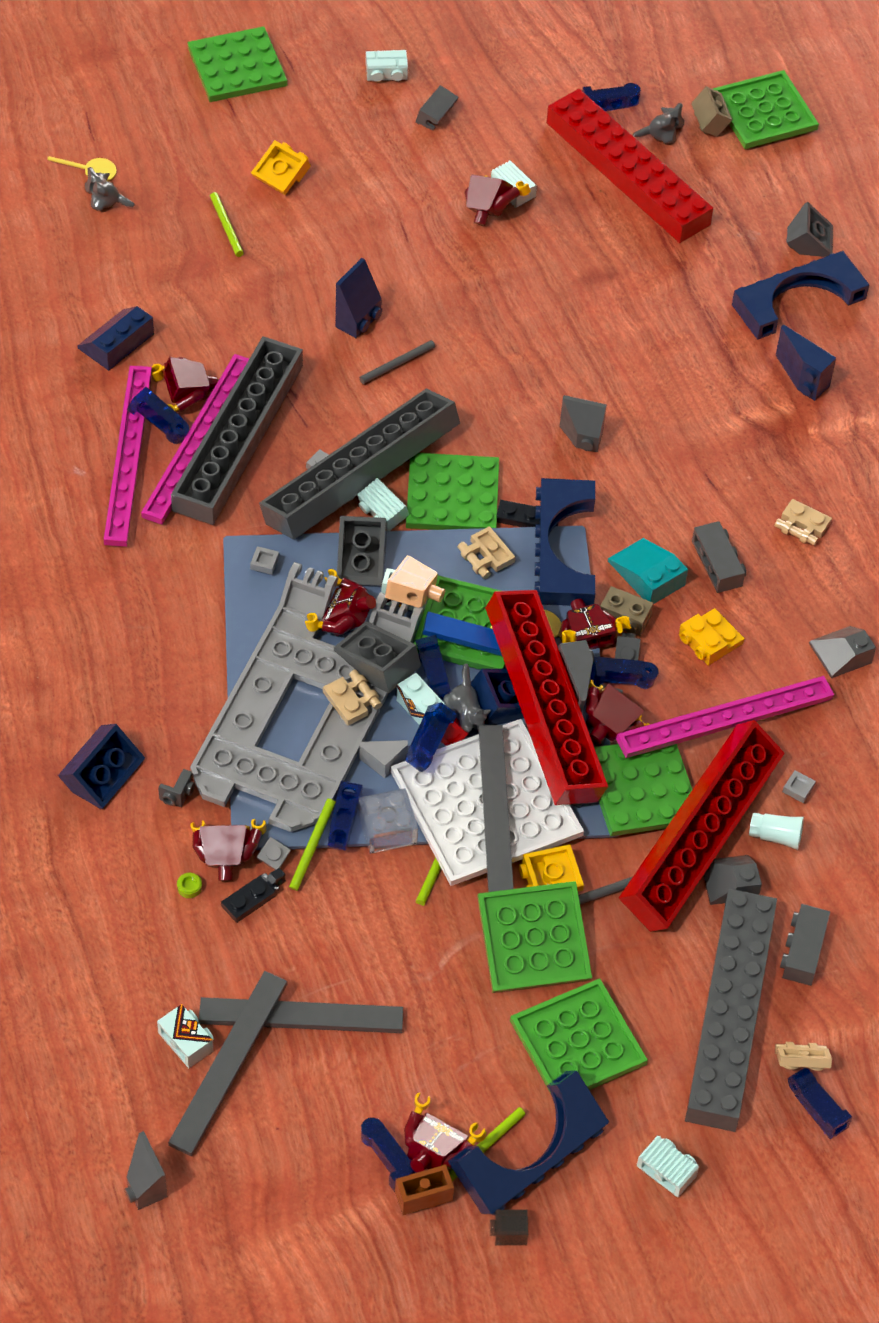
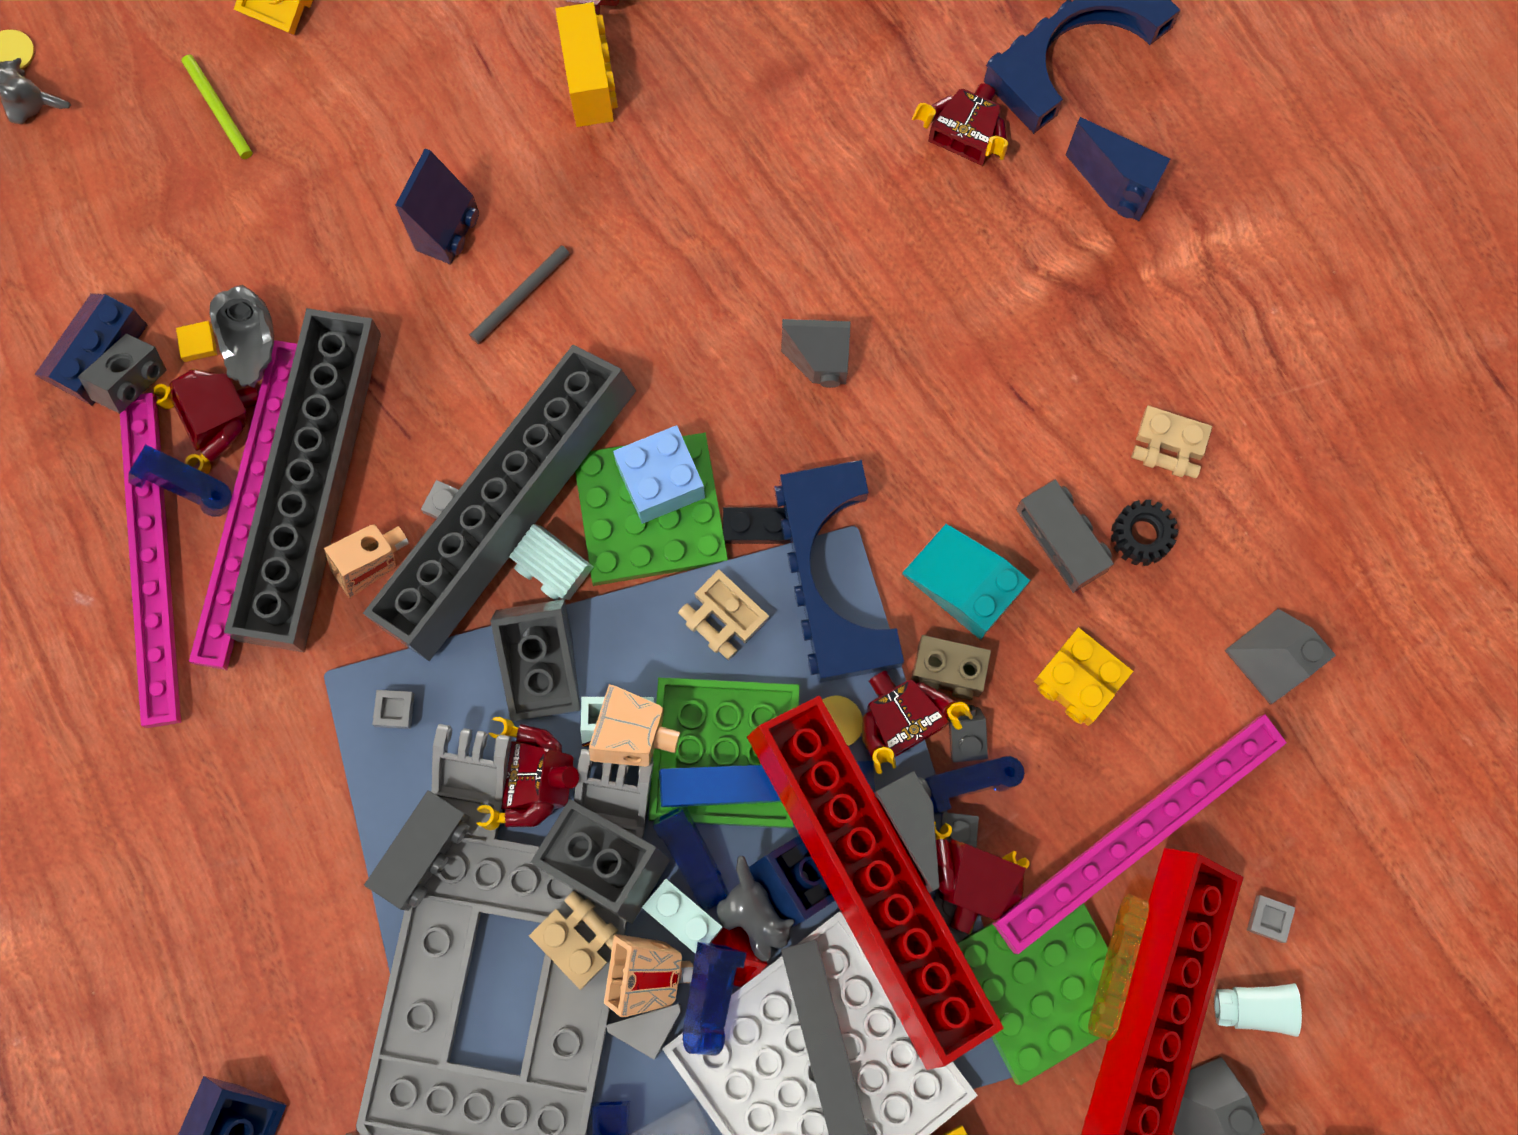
camera: 10 degrees left, 20 degrees up
(136, 351) = (122, 373): none -> dark grey brick
(184, 347) = (196, 341): none -> yellow tile
(217, 343) = (243, 333): none -> dark grey hair
(263, 477) = (364, 557): none -> light nougat torso
(265, 628) = (418, 852): none -> dark grey brick
(389, 719) = (643, 975): none -> light nougat torso
(464, 467) = (659, 474): none -> light blue brick
(471, 242) = (587, 64): none -> yellow brick
(690, 780) = (1118, 967): none -> clear yellow beam
(711, 322) = (966, 124): none -> dark red torso
(775, 556) = (1158, 519): none -> black tyre

